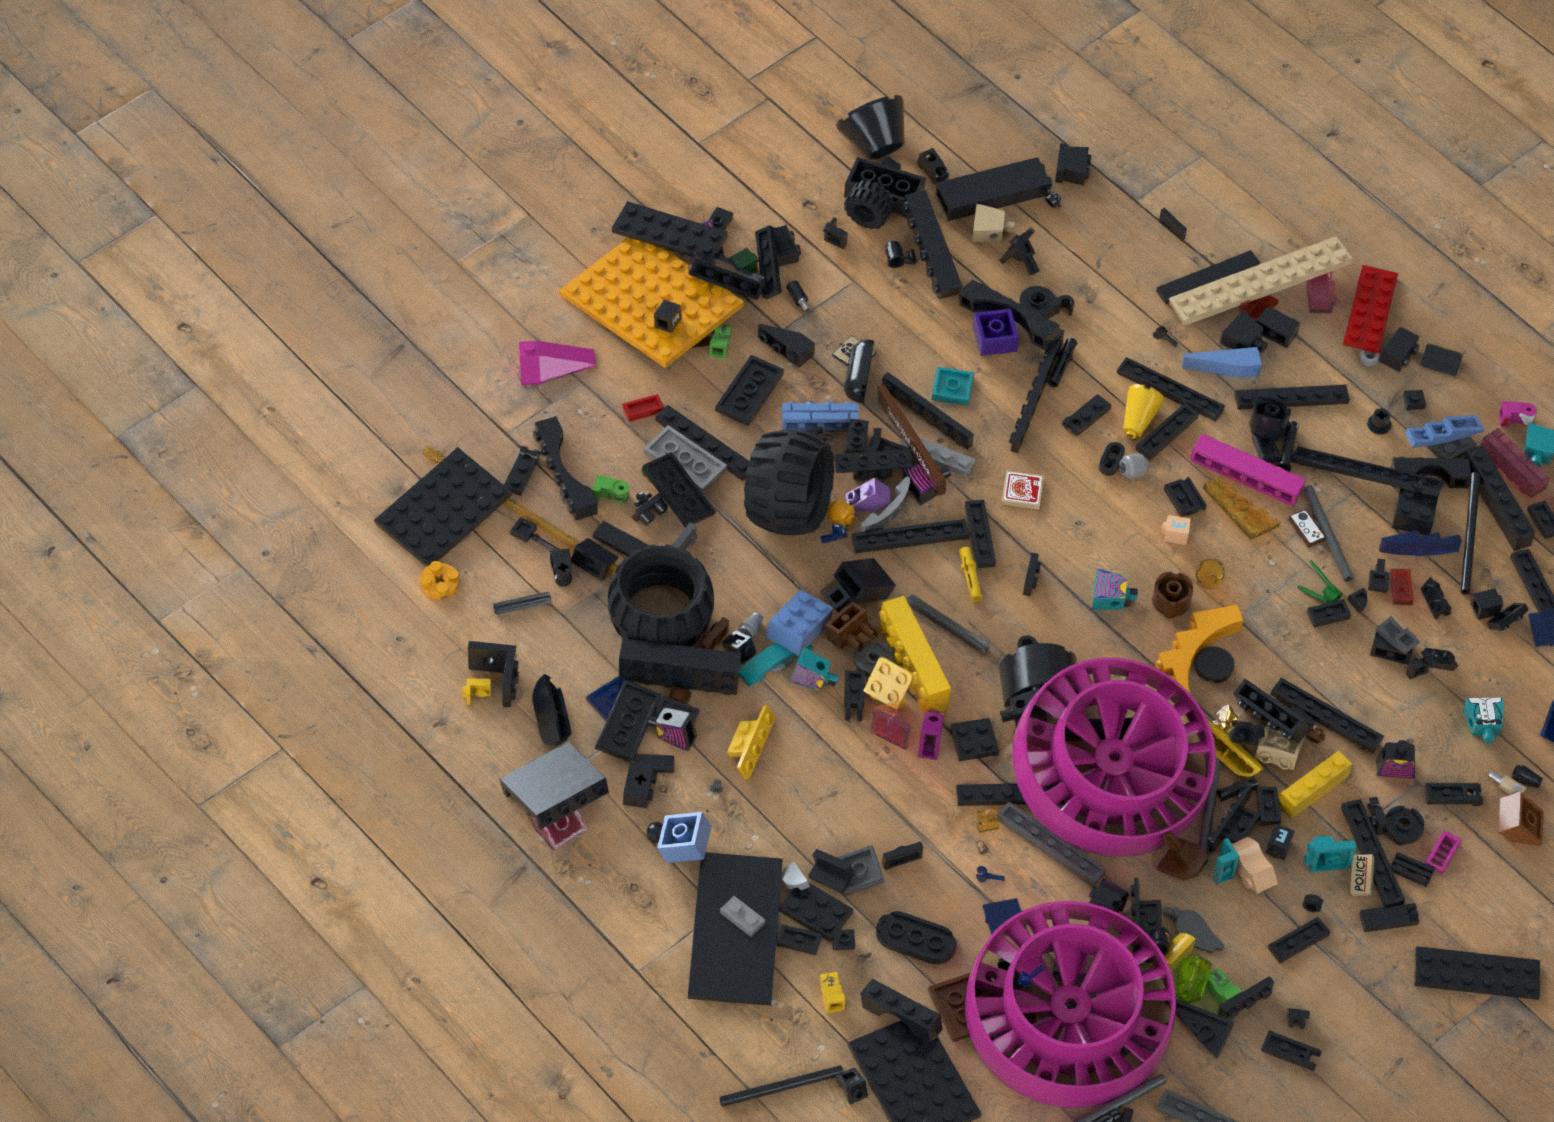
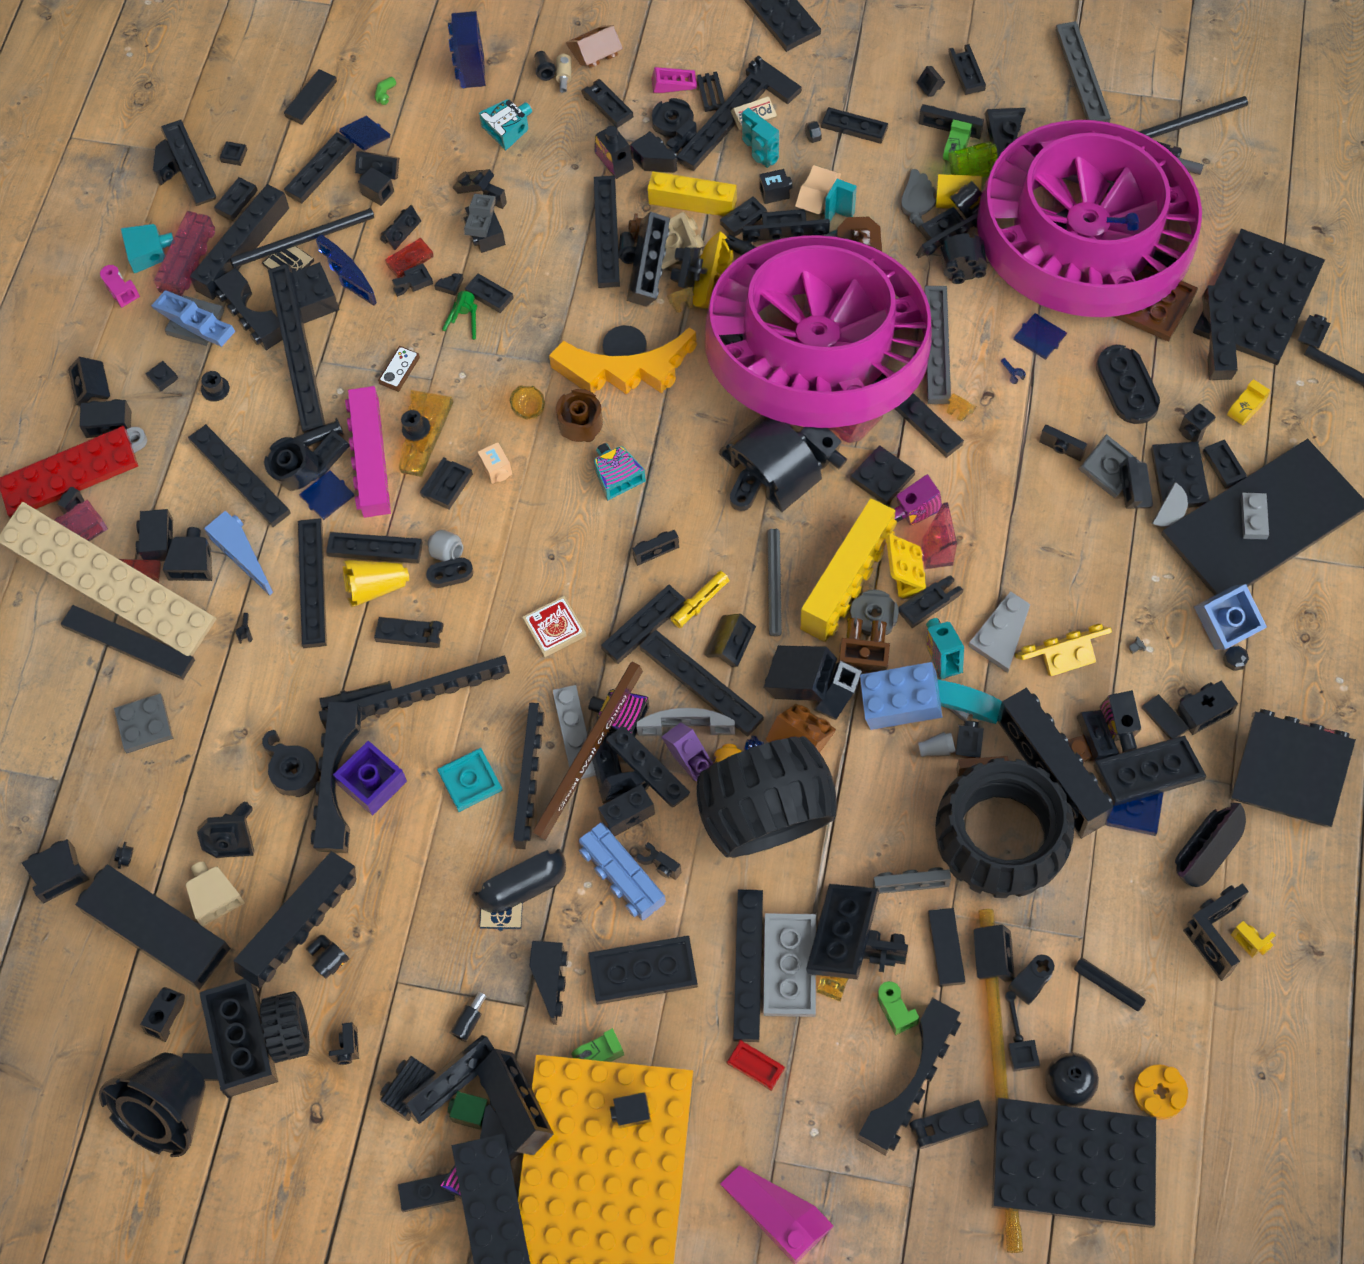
camera: 120 degrees left, 10 degrees up
(488, 543) = (1067, 1089): none -> black cylinder
(797, 720) = (1002, 631): none -> light grey wing
(823, 560) = (800, 722): none -> dark orange slope
(925, 571) = (731, 639): none -> black panel
(1140, 255) = (143, 723): none -> dark grey plate
(1172, 224) = (75, 717): black piece -> none
(1235, 433) = (327, 495): none -> clear blue piece
(1244, 500) = (414, 425): none -> black piece
(1327, 531) = (391, 348): dark grey piece -> none
(1344, 298) = (70, 500): none -> black plate
(1377, 784) = (653, 155): none -> black slope
(1456, 520) = (293, 256): none -> piece

